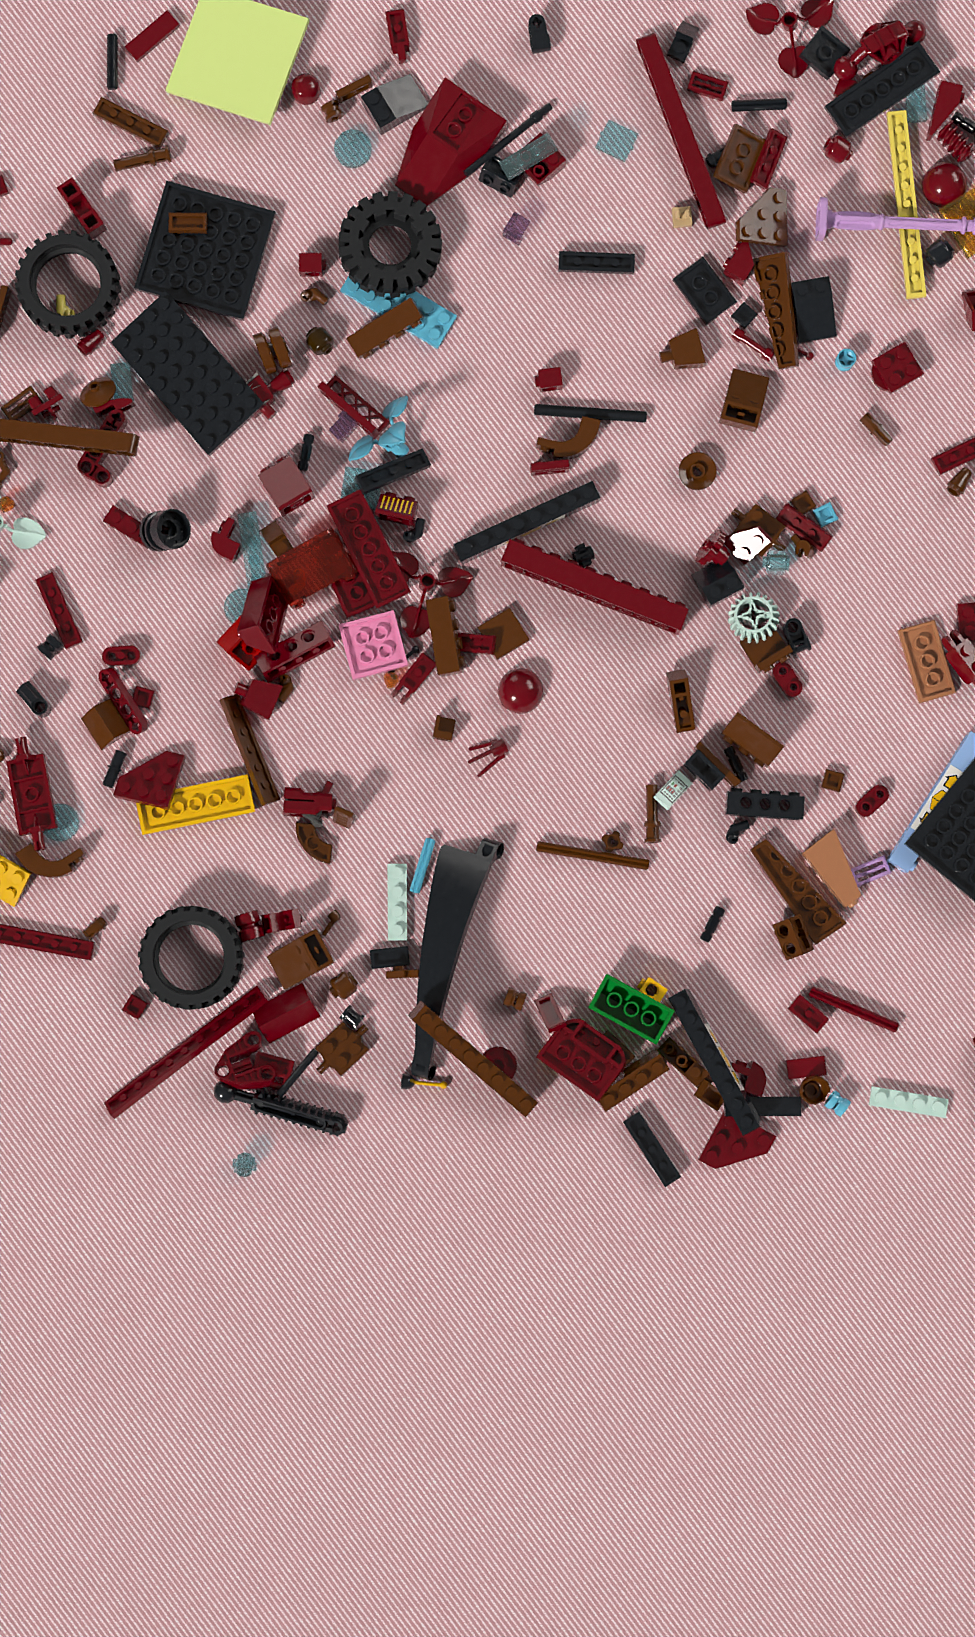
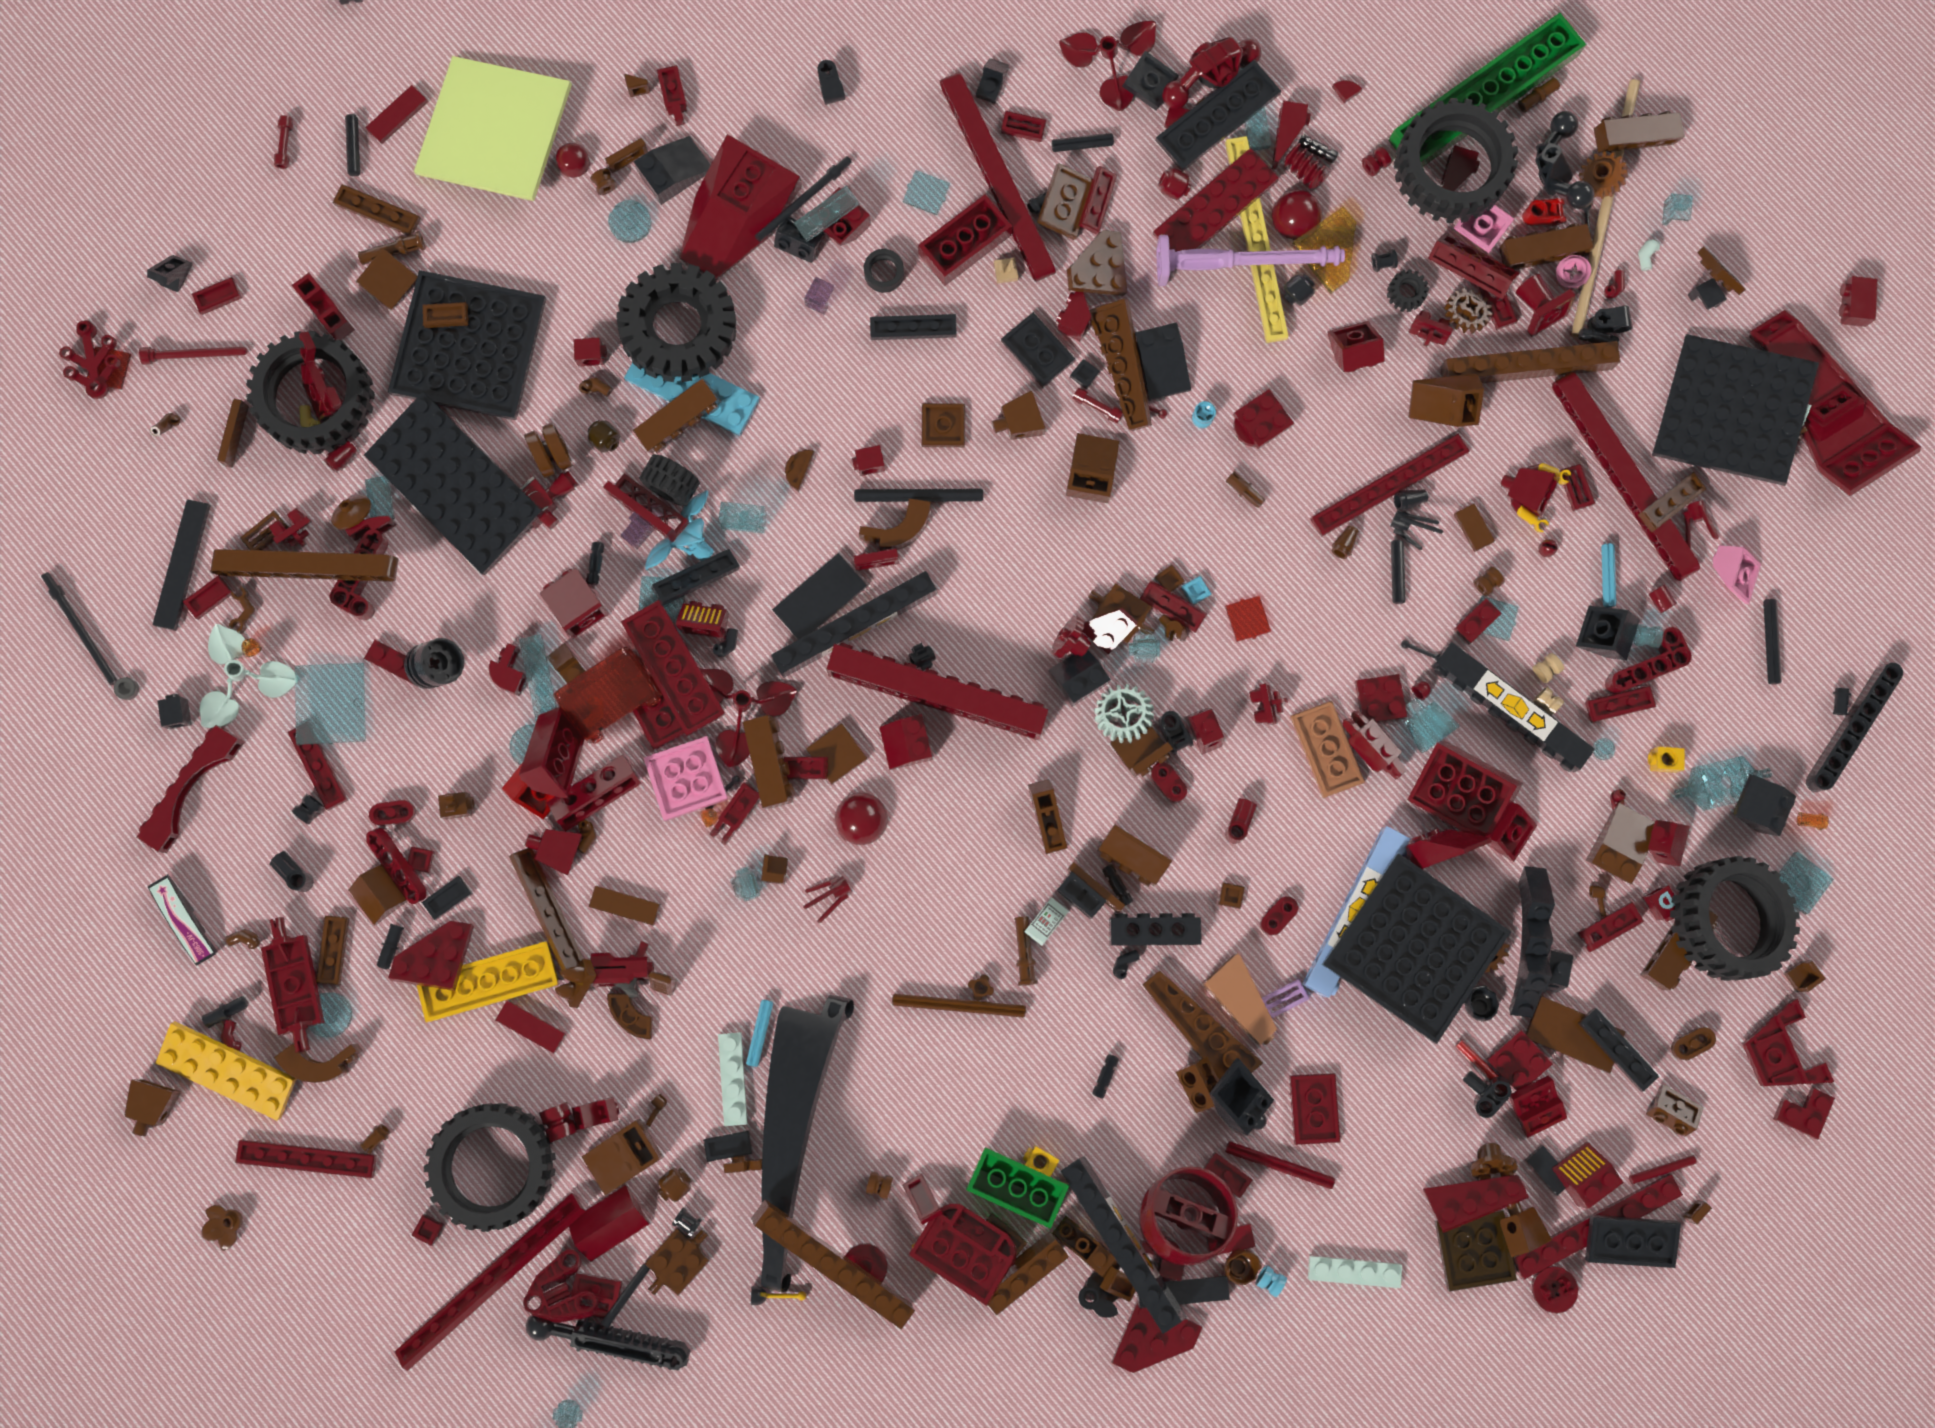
camera: 10 degrees left, 5 degrees down
(49, 69) = (285, 125): none -> dark red bar
(65, 768) = (332, 950): none -> reddish brown tile
(72, 557) = (330, 703): none -> clear light blue piece
(76, 289) = (322, 398): none -> dark red wing
(137, 186) = (386, 279): none -> reddish brown tile
(164, 731) = (447, 898): none -> black tile
(176, 653) = (456, 805): none -> reddish brown brick
(229, 845) = (530, 1026): none -> dark red tile
(275, 809) = (580, 981): none -> reddish brown tile
(314, 749) = (624, 905): none -> reddish brown tile
(366, 25) = (636, 86): none -> reddish brown slope
(375, 384) = (669, 480): none -> black tyre
(419, 739) = (746, 884): none -> clear light blue head
(436, 421) = (742, 517): none -> clear light blue window
(486, 380) = (797, 467): none -> reddish brown tile
(498, 497) = (819, 597): none -> black tile
(564, 628) = (906, 742): none -> dark red slope
(588, 209) = (883, 254): none -> black tyre
(616, 352) = (943, 425): none -> reddish brown tile
(648, 187) = (964, 239): none -> dark red brick
(651, 1149) = (1055, 1355): black plate -> none
(695, 1107) = (1103, 1300): none -> black plate
(701, 462) = (1048, 541): reddish brown dish -> none
(785, 1048) = (1205, 1221): none -> dark red cylinder
(823, 637) = (1205, 730): none -> dark red torso
(825, 950) = (1241, 1099): none -> black slope
(847, 716) = (1241, 819): none -> dark red piece
(868, 543) = (1248, 618): none -> clear red piece
(874, 170) = (1218, 203): none -> dark red plate
(878, 627) = (1264, 695): none -> dark red hips
(887, 965) = (1314, 1108): none -> dark red tile

